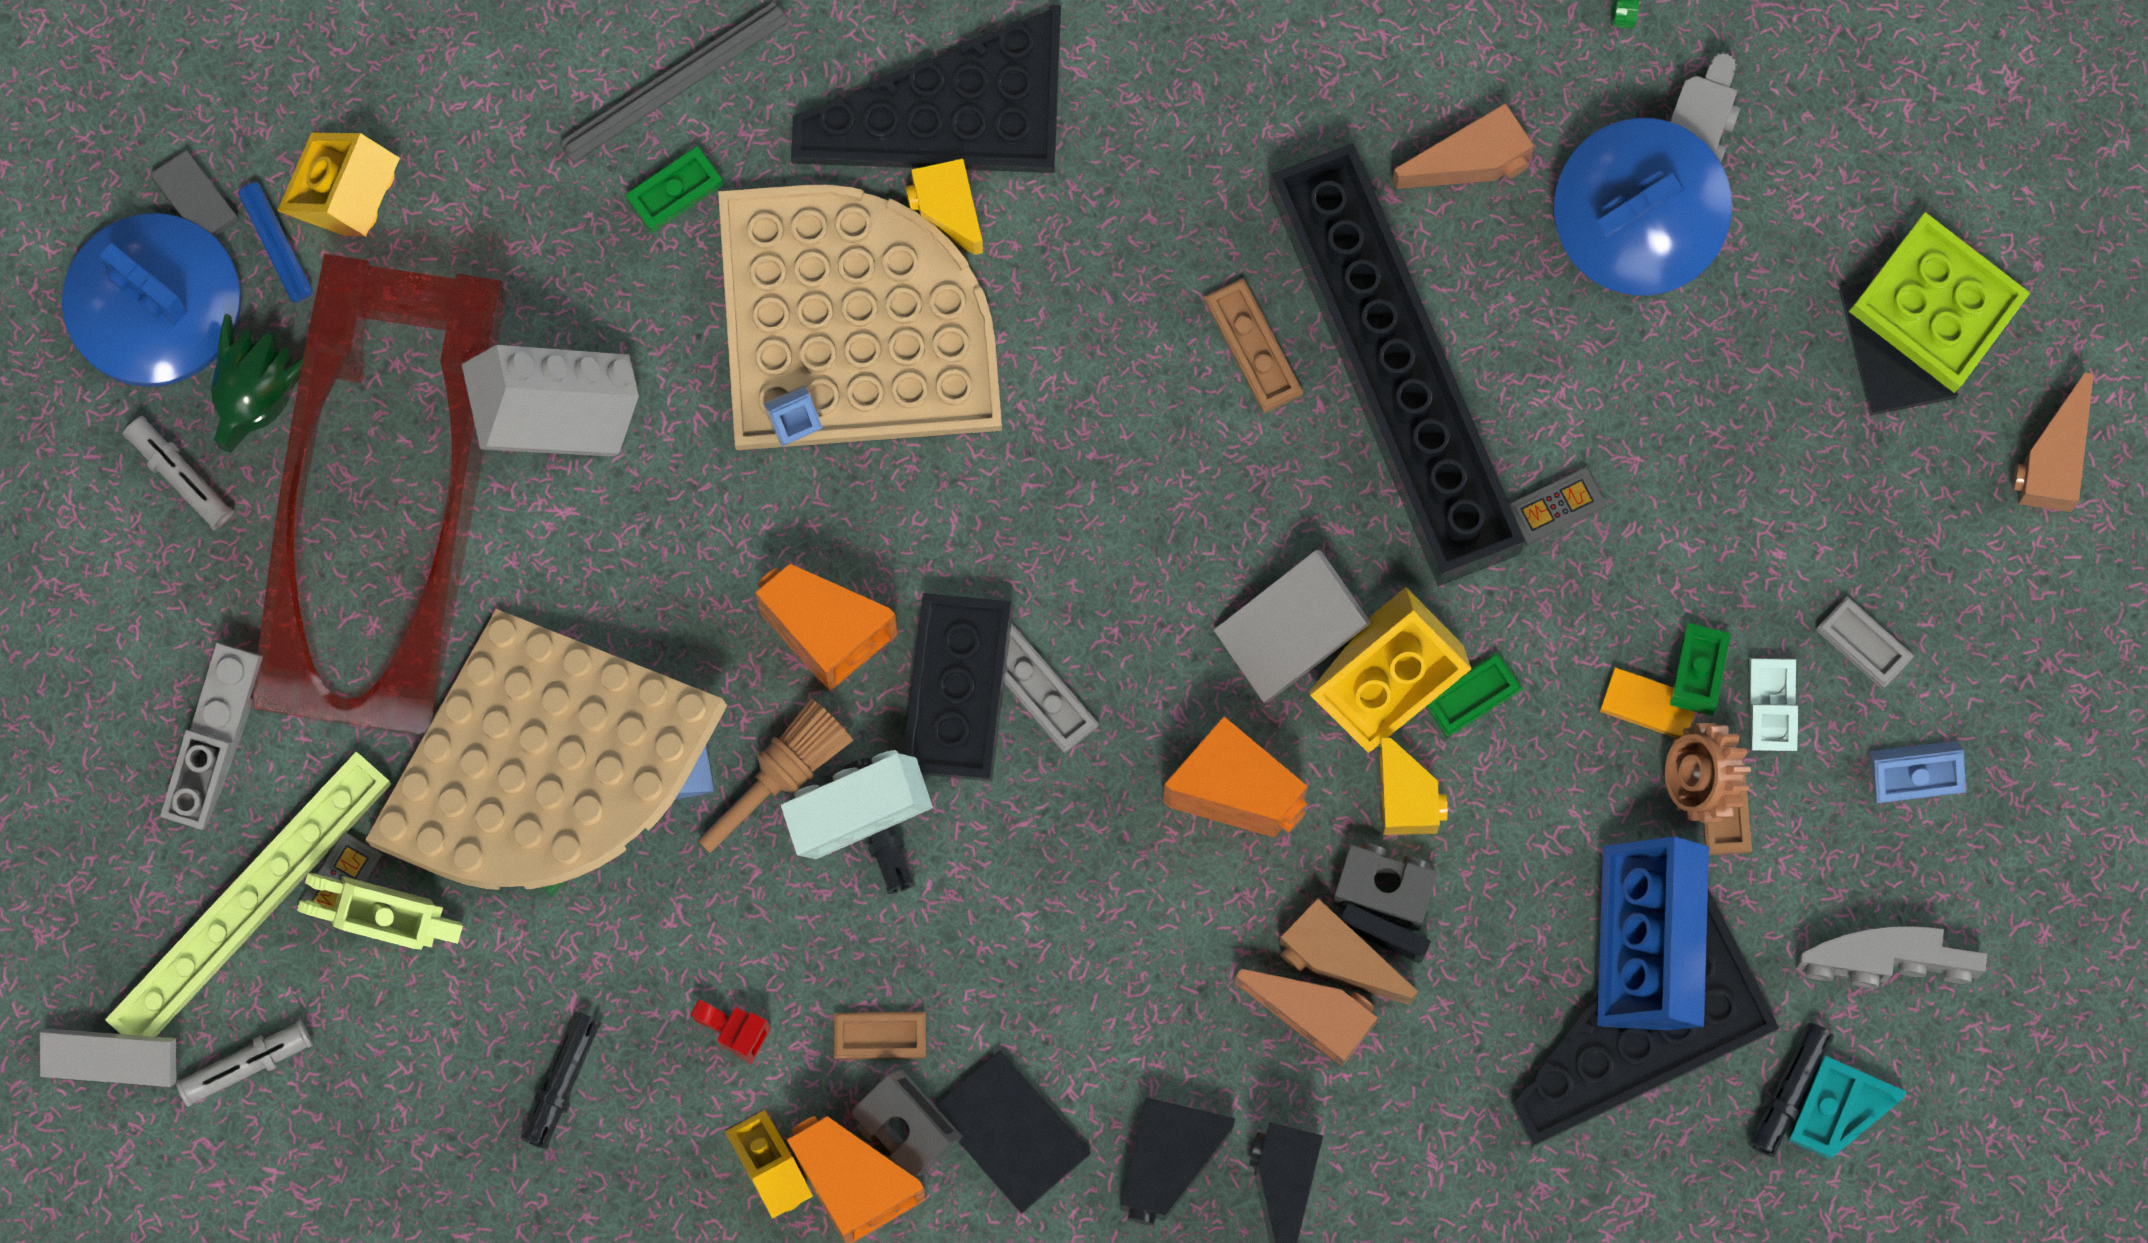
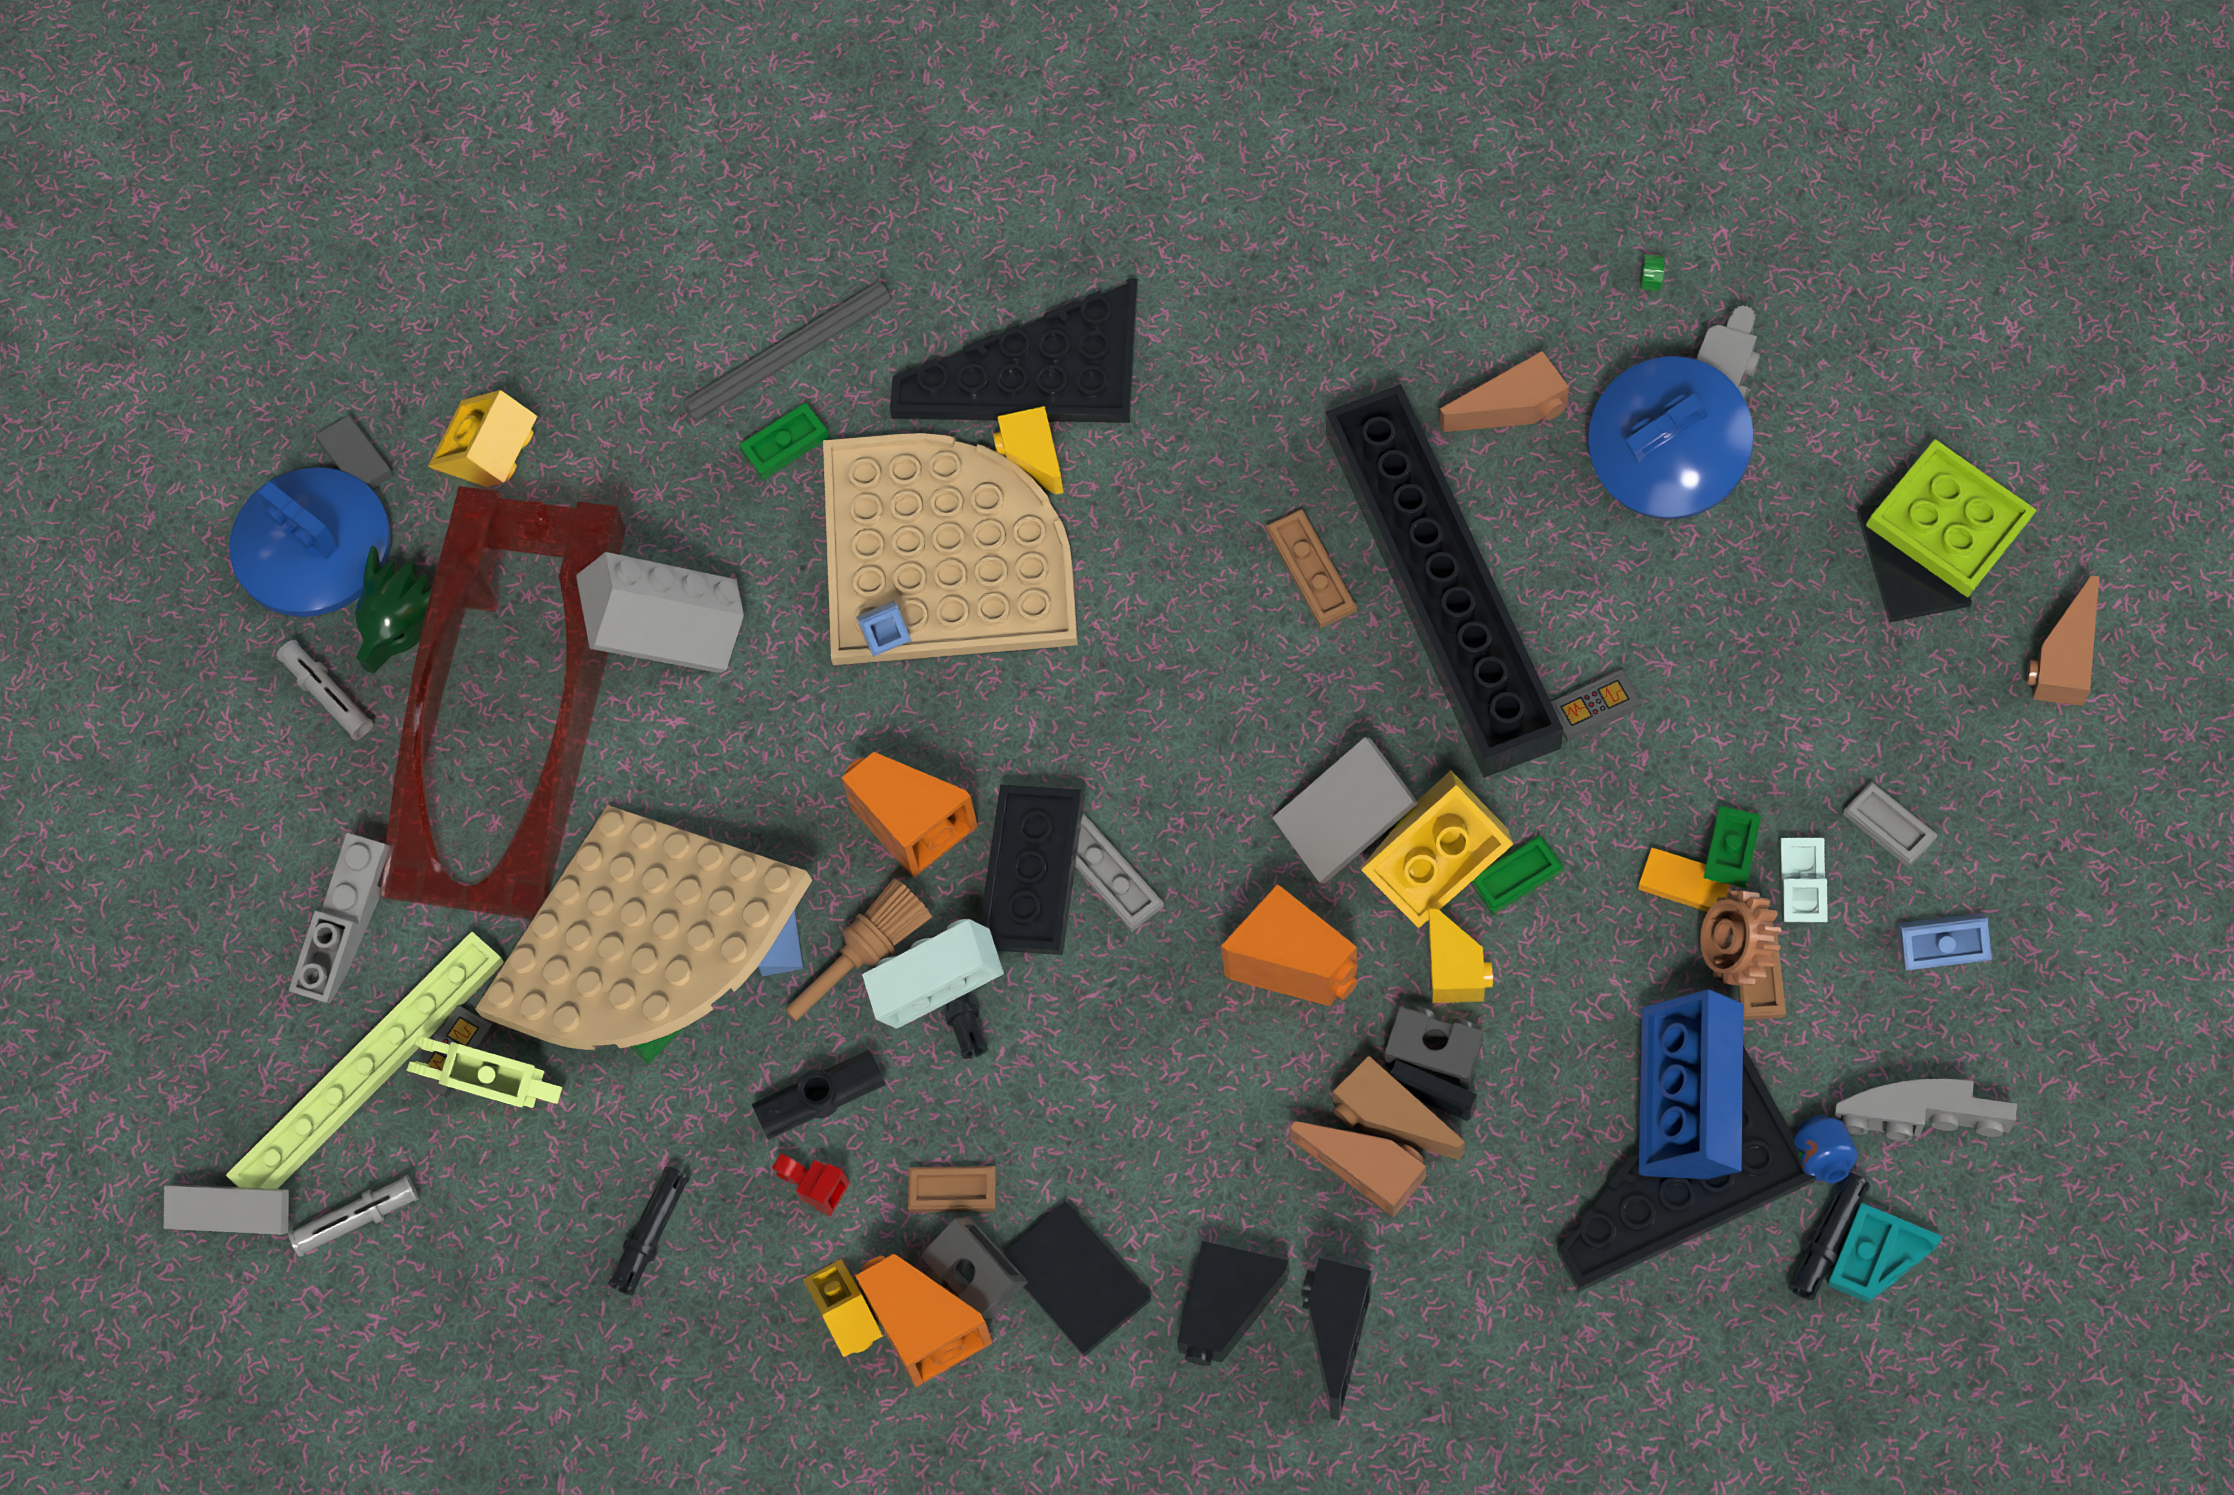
camera: 10 degrees right, 10 degrees down
(275, 242) = (422, 489): blue axle -> none
(764, 920) = (792, 1105): none -> black piece
(1789, 998) = (1825, 1148): none -> blue head

